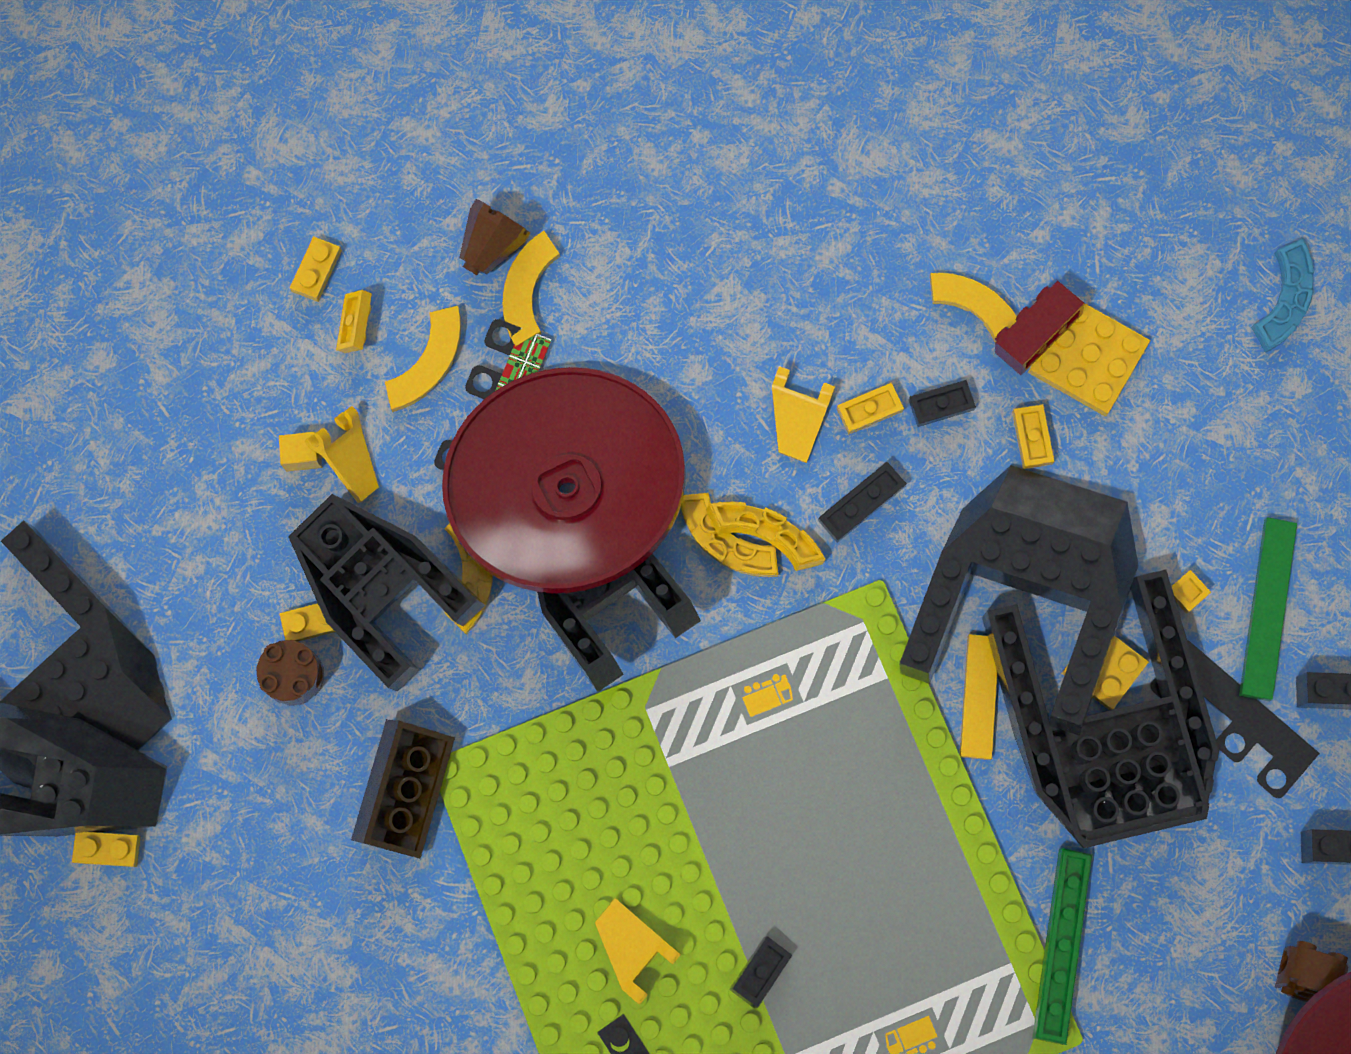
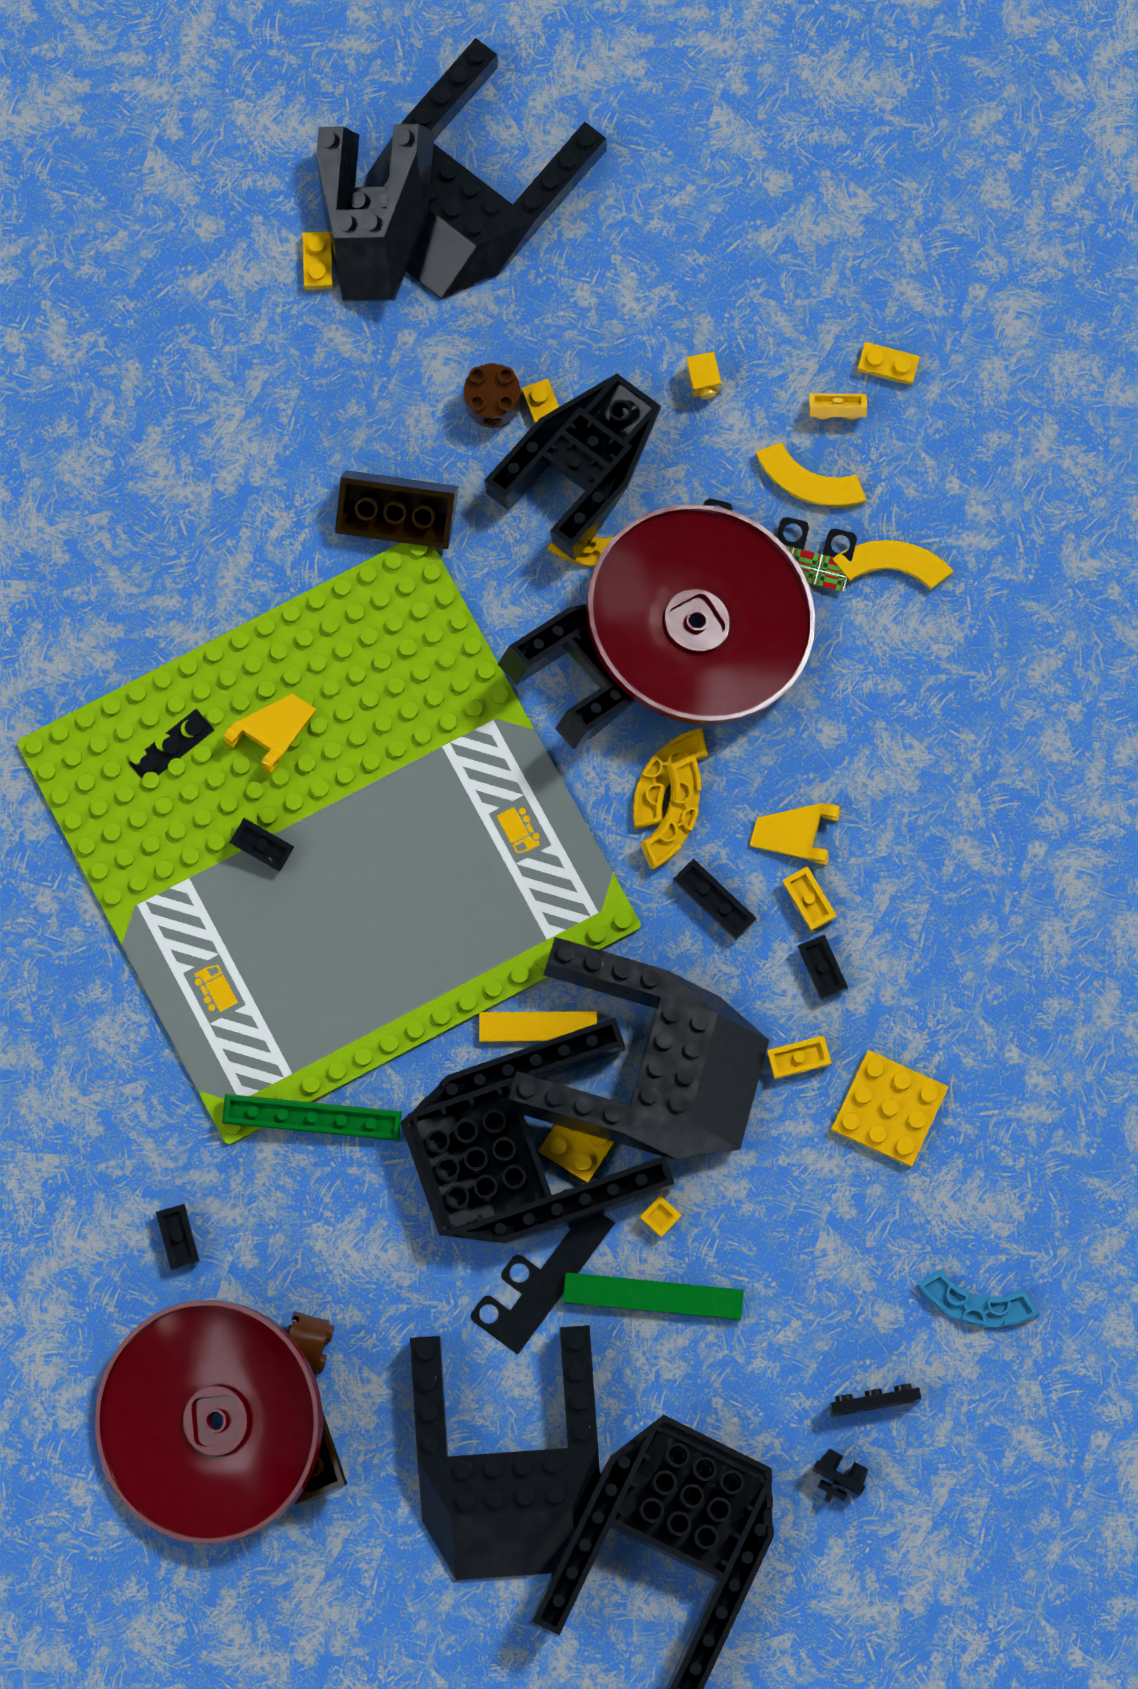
camera: 85 degrees right, 0 degrees up
(347, 455) = (703, 418): yellow flag -> none
(489, 238) = (936, 519): reddish brown cone -> none
(972, 297) = (928, 1004): yellow tile -> none
(1038, 327) = (907, 1049): dark red brick -> none

